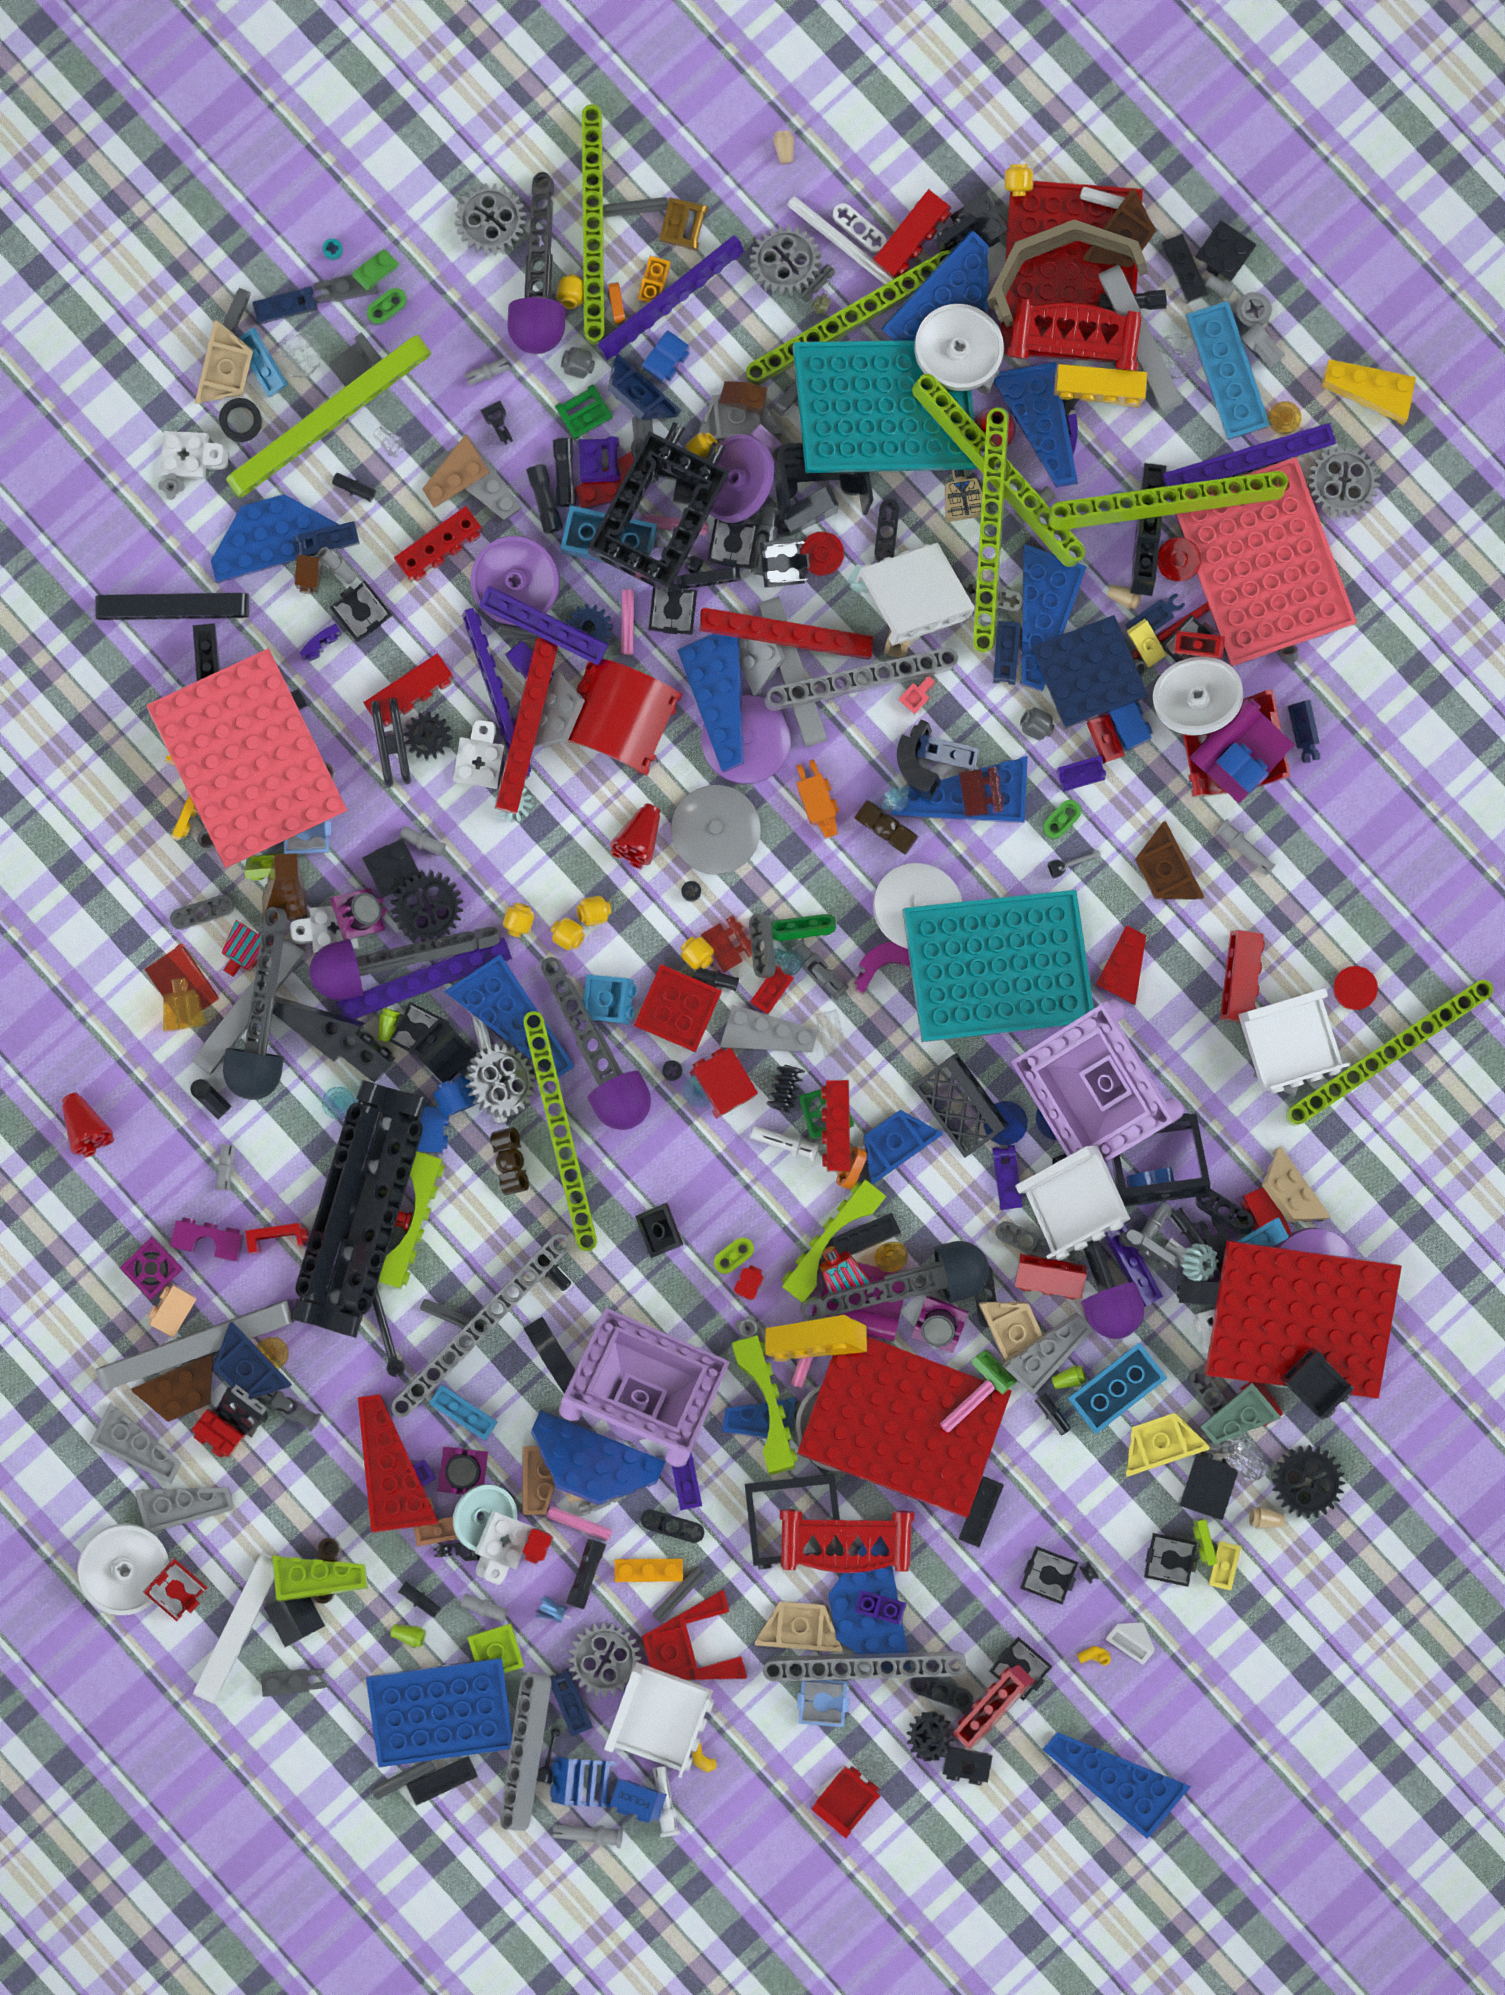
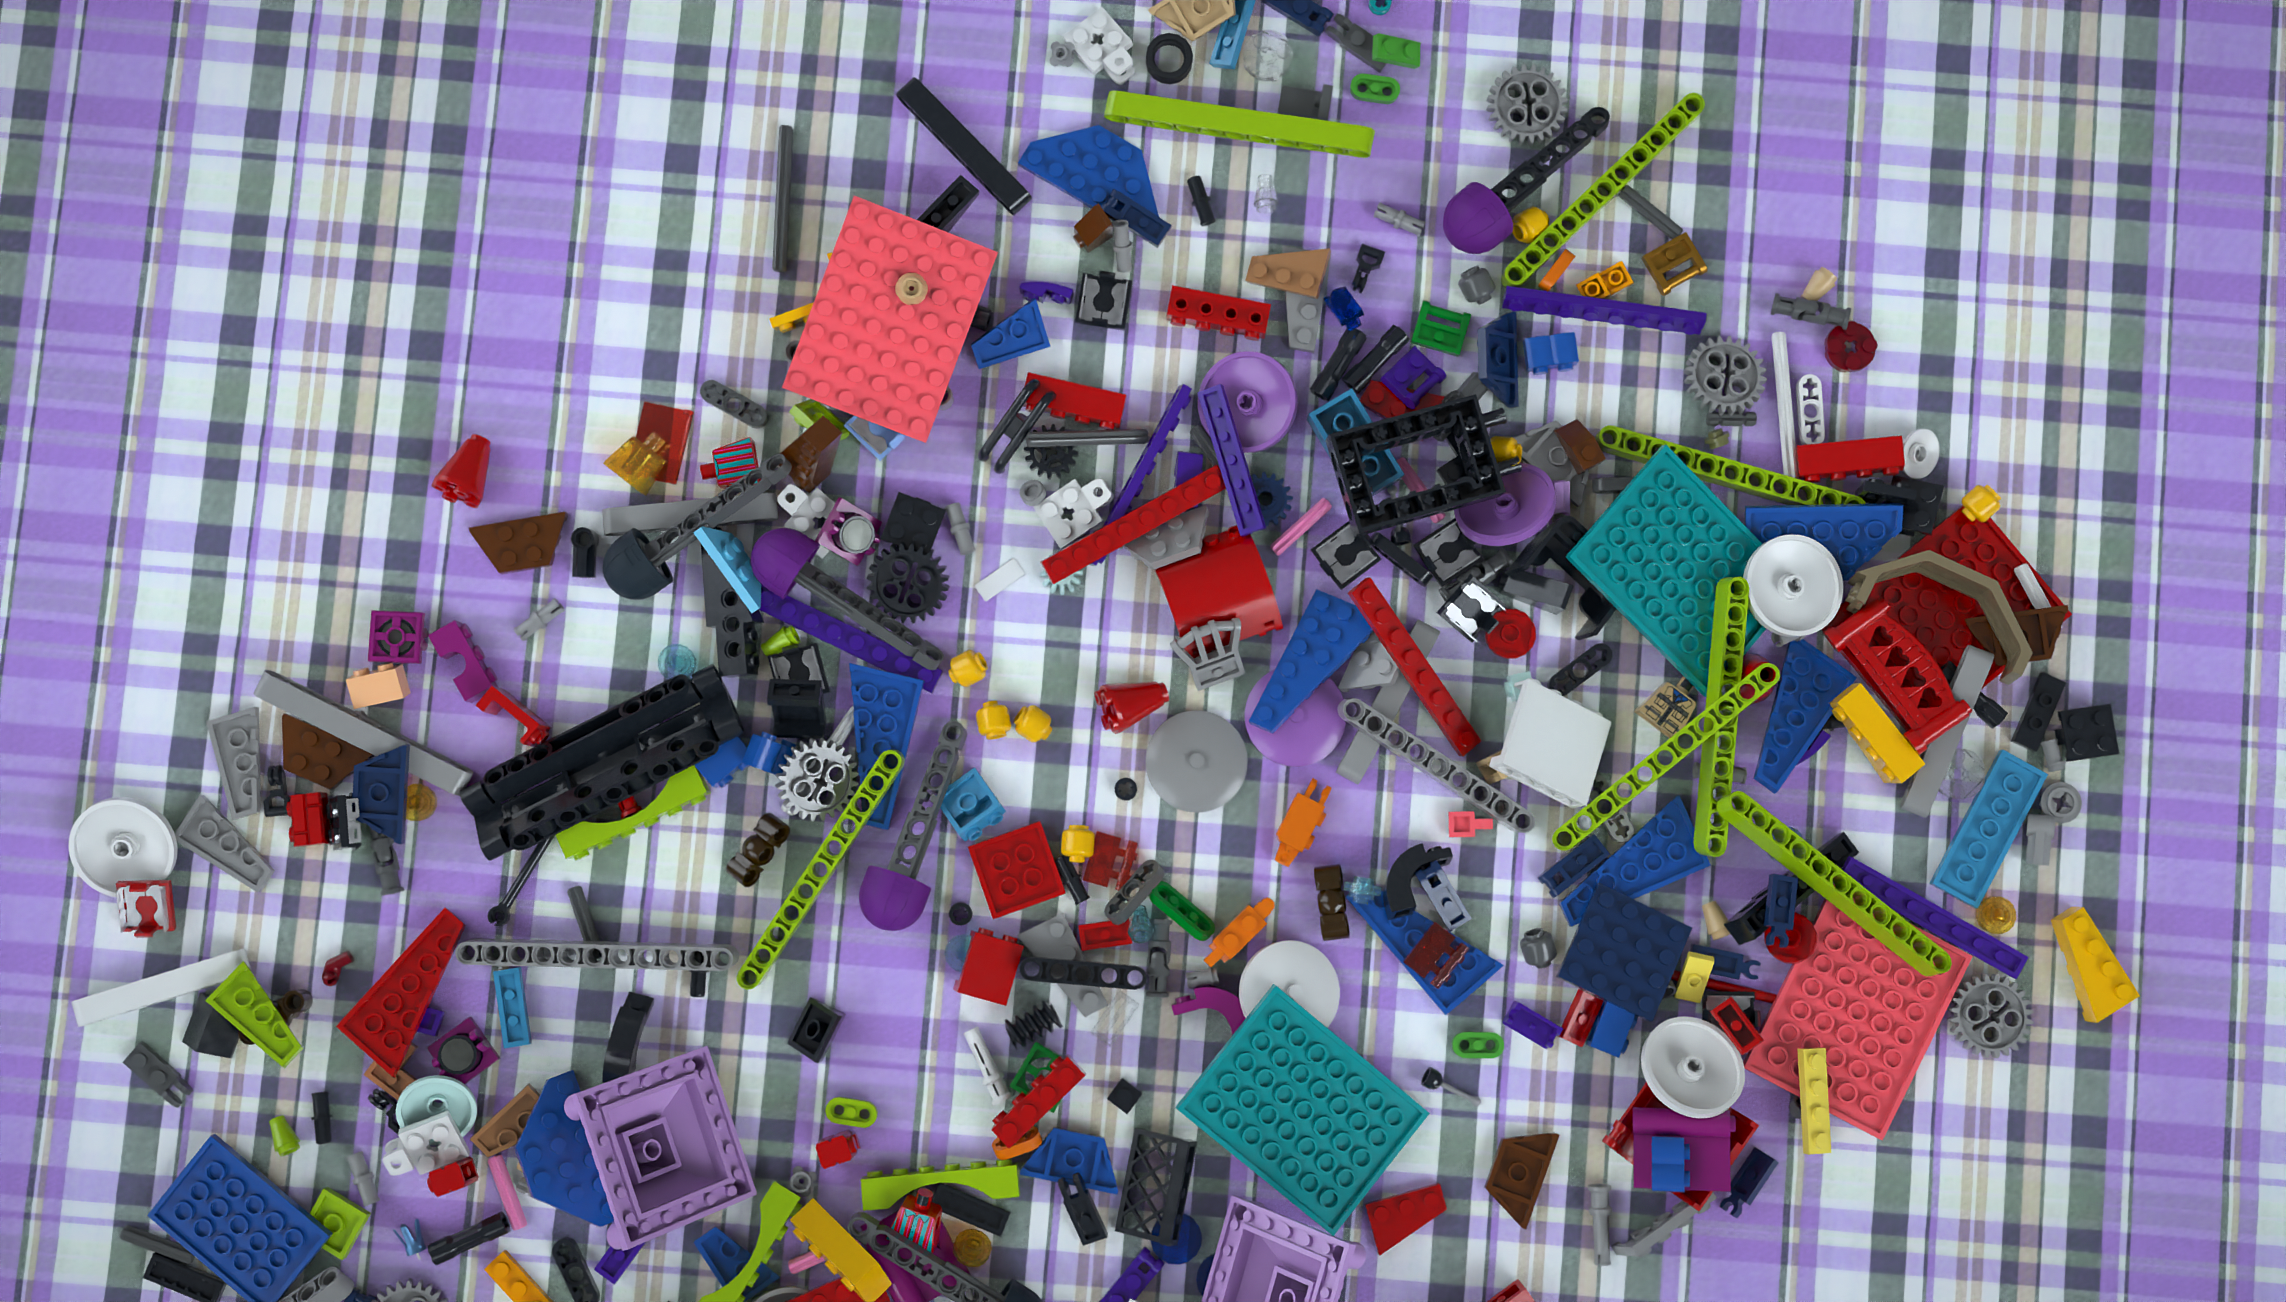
camera: 50 degrees right, 0 degrees up
(95, 756) = (782, 200): none -> dark grey axle
(163, 1133) = (521, 542): none -> reddish brown wing
(168, 1429) = (277, 776): none -> black piece
(235, 728) = (911, 297): none -> tan plate
(311, 1005) = (733, 562): none -> medium azure wing
(328, 1505) = (334, 966): none -> dark red arm
(329, 691) = (1013, 337): none -> blue wing
(441, 704) = (1087, 437): none -> dark grey axle
(443, 773) = (1032, 492): none -> light grey tile
(479, 847) = (999, 579): none -> white sticker
(513, 461) = (1344, 308): none -> clear blue hips
(667, 758) = (1217, 665): none -> light grey plate
(788, 1014) = (1070, 977): none -> black beam
(790, 171) = (1806, 310): none -> dark grey piece
(834, 173) = (1851, 361): none -> dark red plate
(850, 902) = (1239, 931): none -> orange hinge
(857, 954) = (1202, 978): none -> light grey pin
(885, 1073) = (1124, 1095): none -> black plate
(933, 1165) = (1082, 1211): none -> black hinge
(952, 186) = (1920, 453): none -> white dish
(1150, 547) = (1780, 907): none -> dark blue plate
(1283, 813) = (1660, 1231): none -> light grey wing
(1292, 641) = (1814, 1100): none -> light yellow plate

